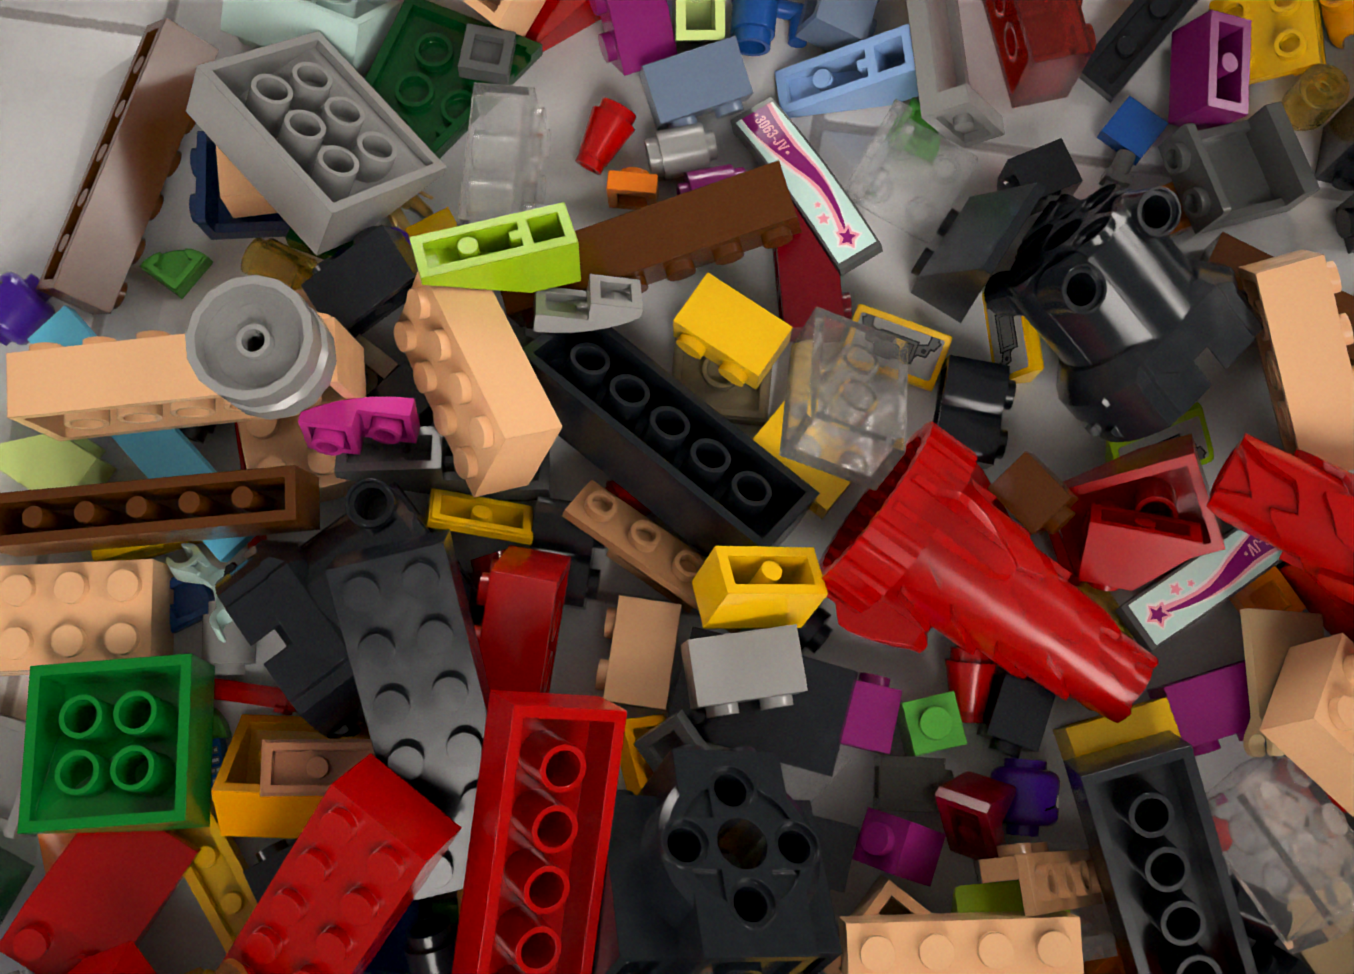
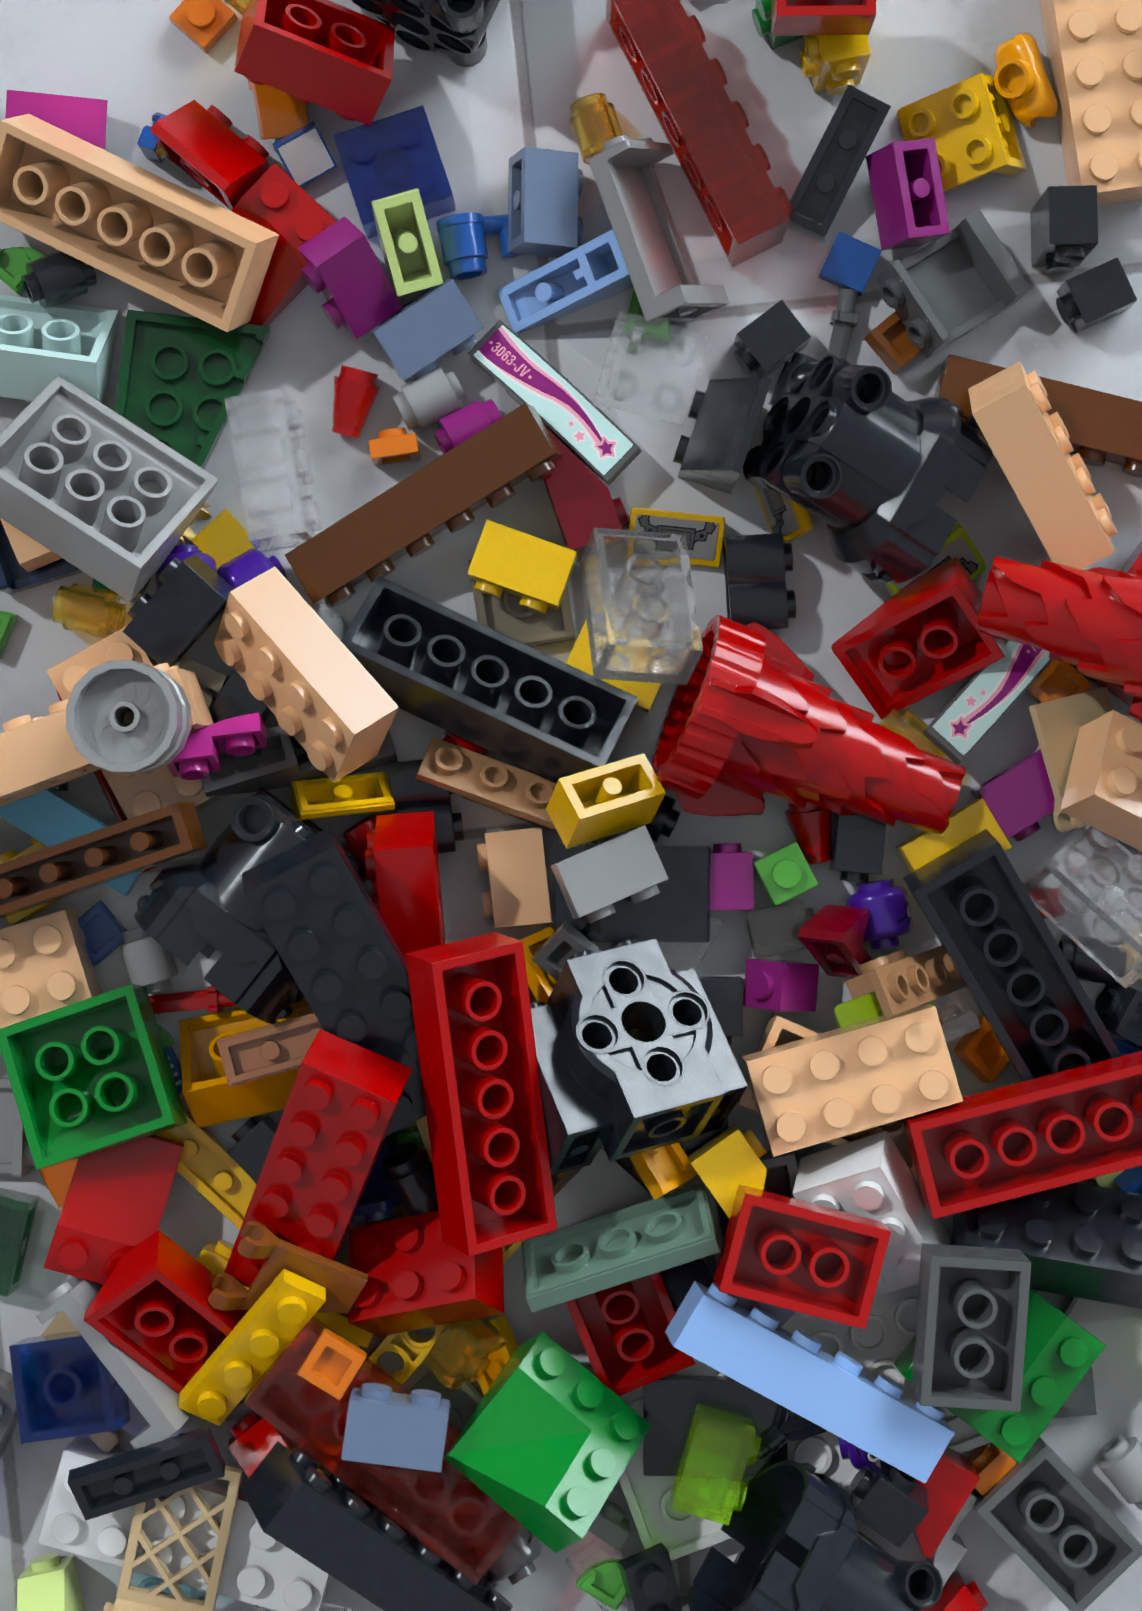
camera: 15 degrees left, 10 degrees up
(200, 571) = (106, 907): light aqua piece -> none
(487, 54) = (223, 357): dark grey plate -> none
(502, 253) = (298, 559): lime slope -> none
(604, 305) = (400, 577): light grey slope -> none
(1034, 495) = (828, 651): reddish brown brick -> none
(1133, 547) = (923, 675): red slope -> none
(1315, 96) = (1004, 204): clear yellow brick -> none

